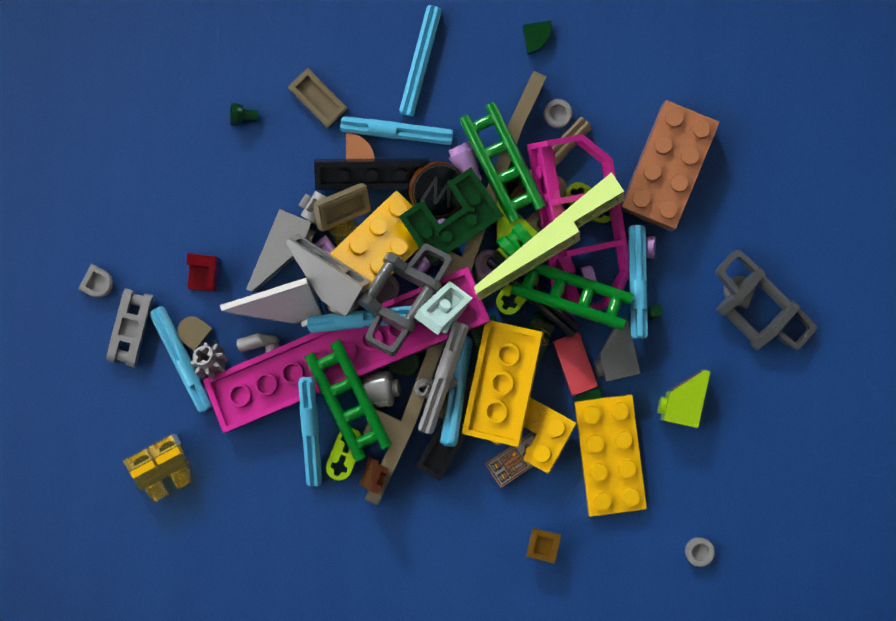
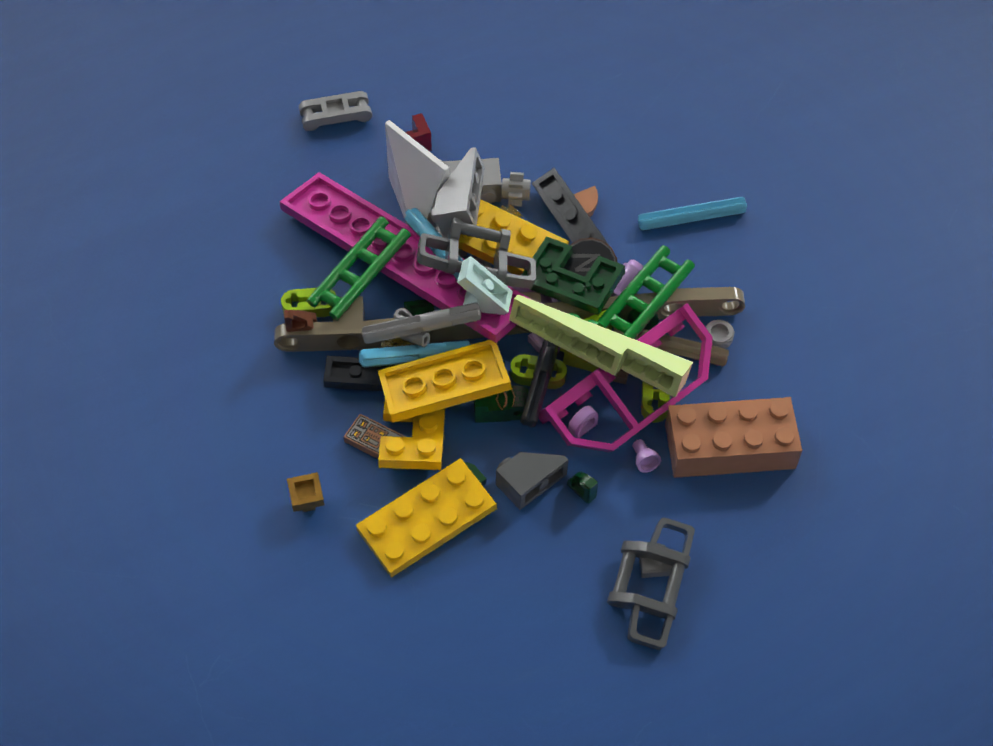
camera: 65 degrees right, 30 degrees down
(97, 282) = (361, 77): light grey tile -> none
(157, 463) = (227, 172): clear yellow hips -> none
(180, 359) = (330, 151): medium azure axle -> none
(193, 331) = (356, 154): dark tan tile -> none
(209, 360) = (338, 167): light grey gear -> none
(238, 114) = (559, 108): dark green piece -> none
(258, 340) = (373, 195): light grey arm -> none
(310, 431) = (315, 258): medium azure axle -> none
(317, 98) = (610, 158): dark tan tile -> none
(341, 207) = (528, 200): dark tan tile -> none
(381, 388) = (382, 298): light grey head -> none
(396, 130) = (620, 220): medium azure axle -> none
(536, 35) = (775, 287): dark green tile -> none
(575, 364) = (498, 443): coral slope -> none
(582, 308) = (552, 406): green bar -> none
(638, 281) = (607, 455): medium azure axle -> none
(685, 401) = (519, 556): lime slope -> none
(699, 552) = (371, 646): light grey tile -> none

